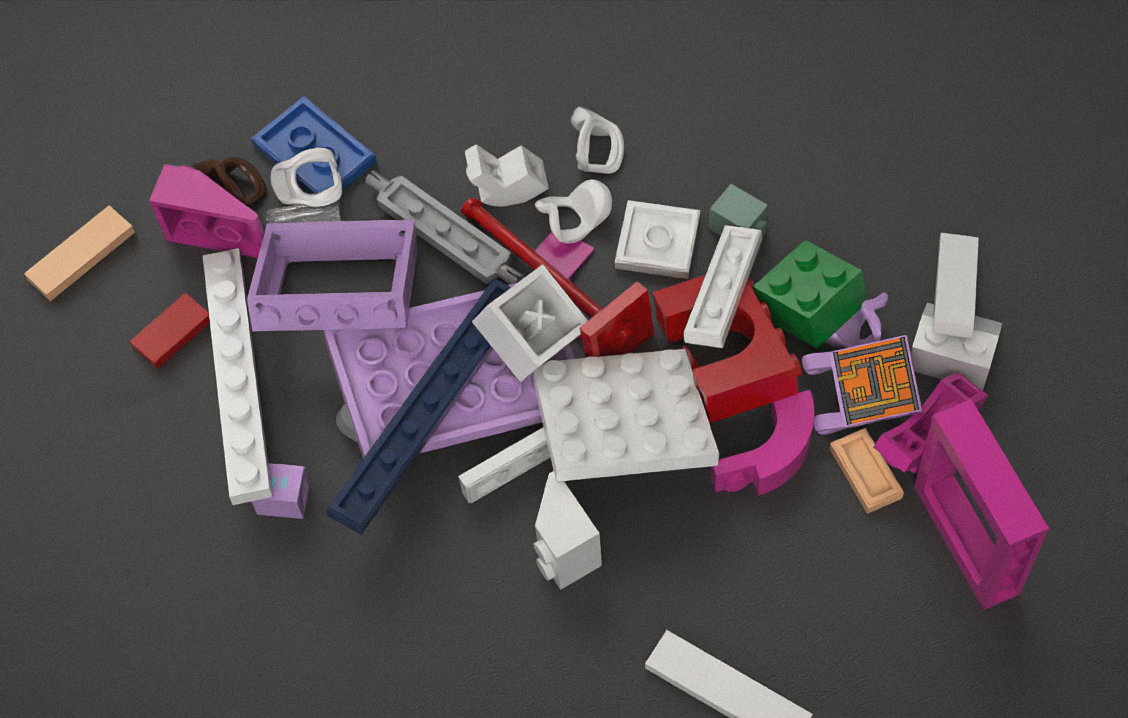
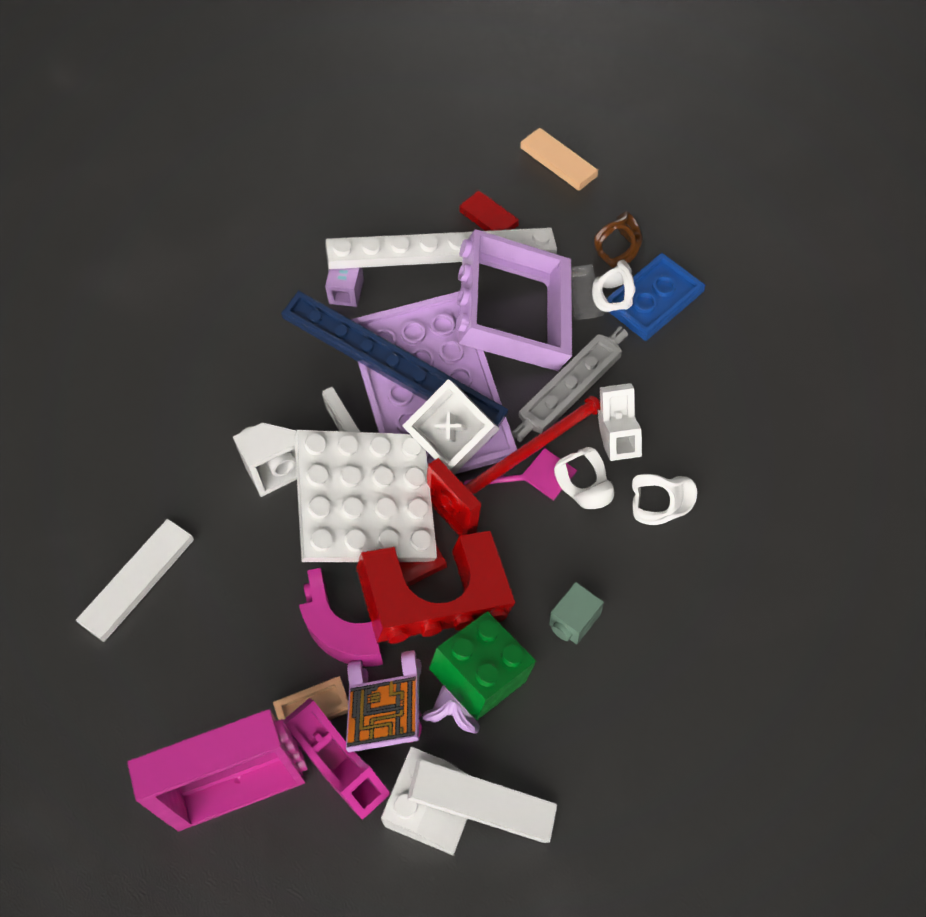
camera: 90 degrees right, 0 degrees up
(203, 214) = (582, 214): dark pink slope -> none
(657, 239) = (560, 549): white tile -> none
(723, 286) = (486, 583): white tile -> none

